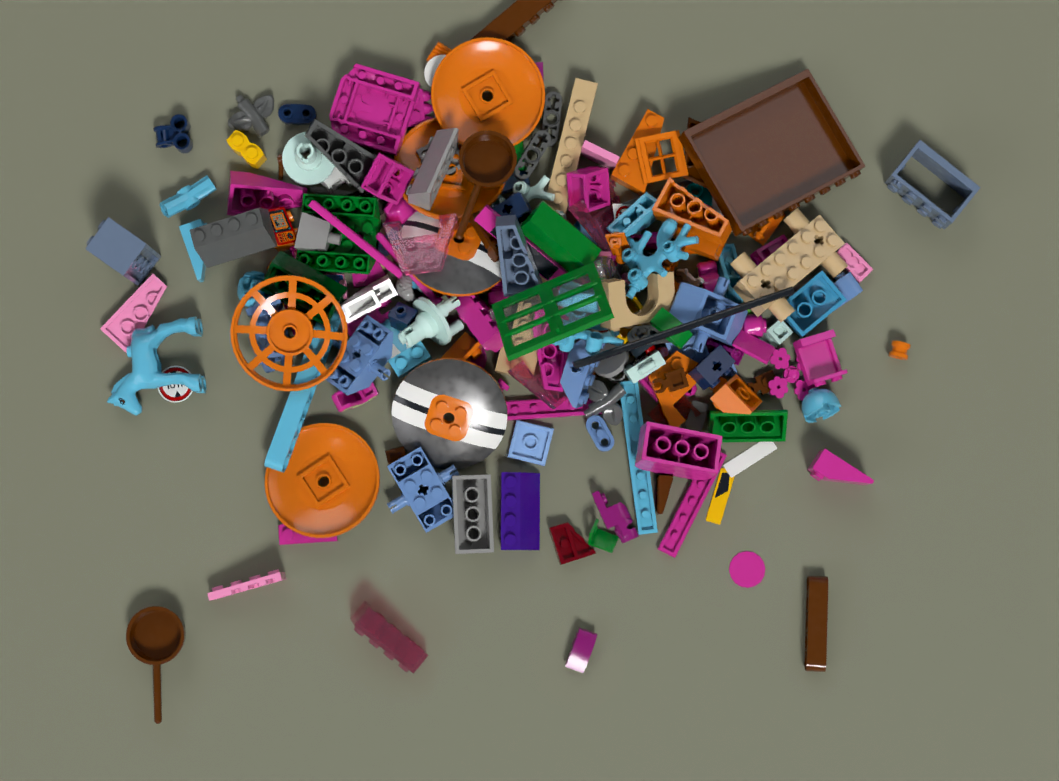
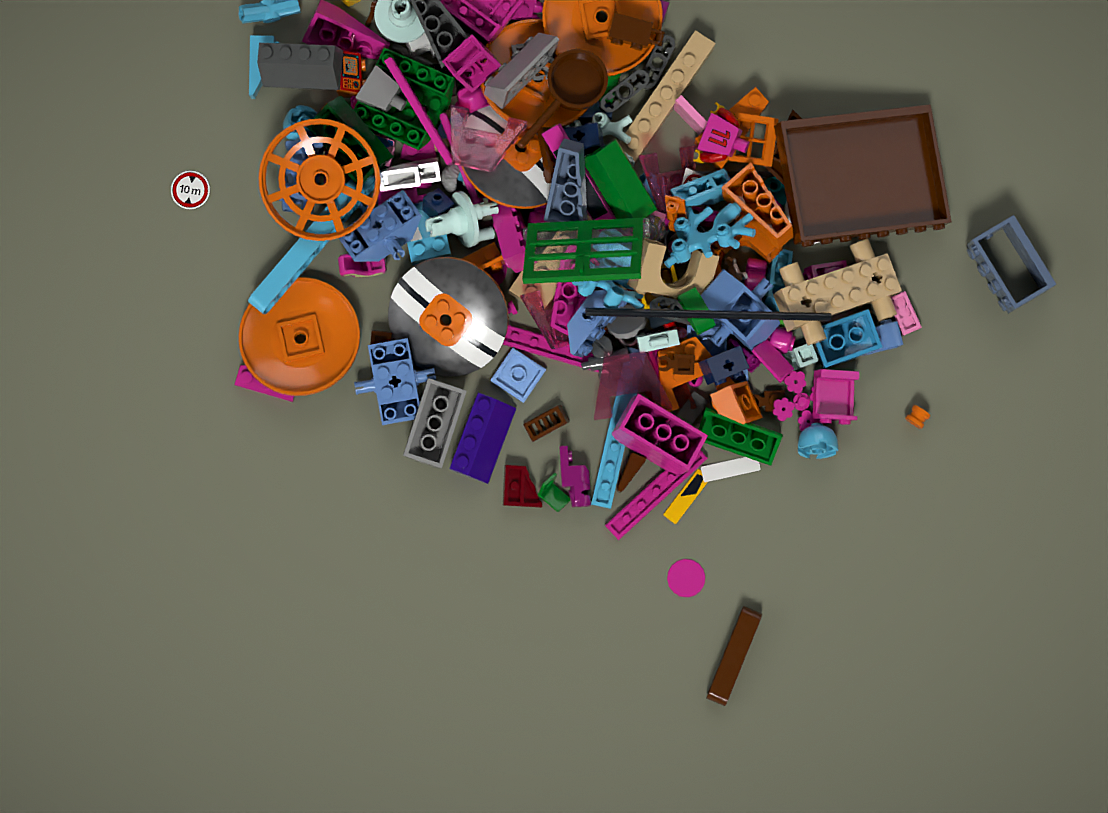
camera: 20 degrees right, 0 degrees up
(122, 251) = (186, 40): sand blue hose -> none
(134, 312) = (172, 108): bright pink wing -> none
(147, 367) = (169, 162): medium azure animal -> none
(155, 638) = (79, 431): reddish brown piece -> none
(238, 586) = (195, 412): bright pink wing -> none
(388, 638) = (308, 515): clear pink wedge -> none
(521, 99) = (633, 32): none -> reddish brown brick
(580, 462) = (562, 415): none -> reddish brown slope
(581, 650) = (492, 596): magenta slope -> none
(584, 186) = (664, 140): dark pink piece -> none
(600, 433) = (588, 391): medium blue plate -> none
(629, 408) = (628, 375): none -> clear pink wing
(634, 165) = (720, 137): none -> dark pink torso
(762, 234) = (827, 251): orange hinge -> none
(831, 468) = (807, 510): dark pink slope -> none

